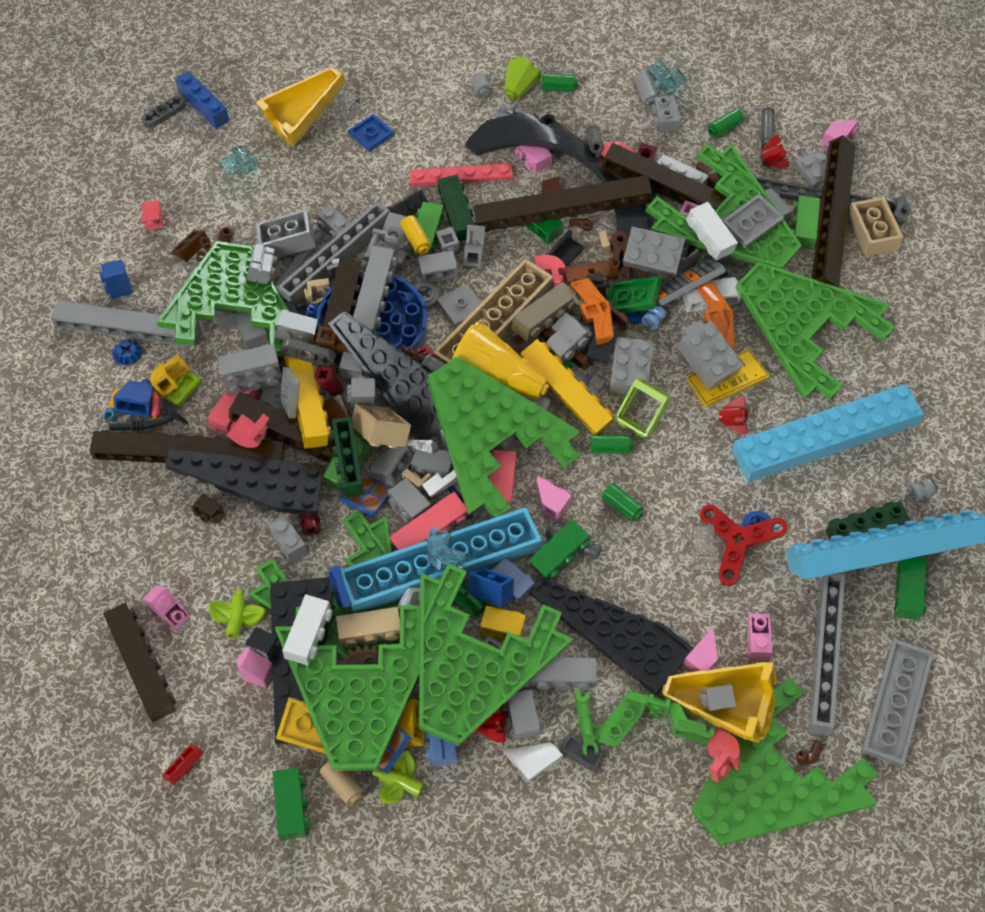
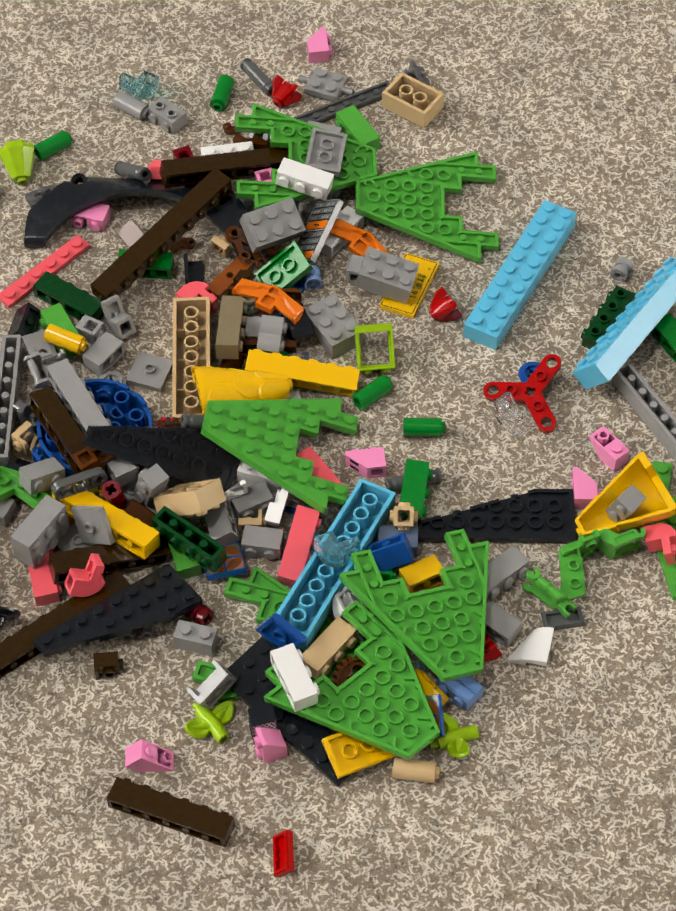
camera: 40 degrees left, 5 degrees down
(256, 589) = (214, 686): none -> light grey panel
(290, 803) = (393, 814): green brick -> none
(521, 561) = (403, 507): none -> tan brick
(834, 211) = (373, 107): dark brown brick -> none

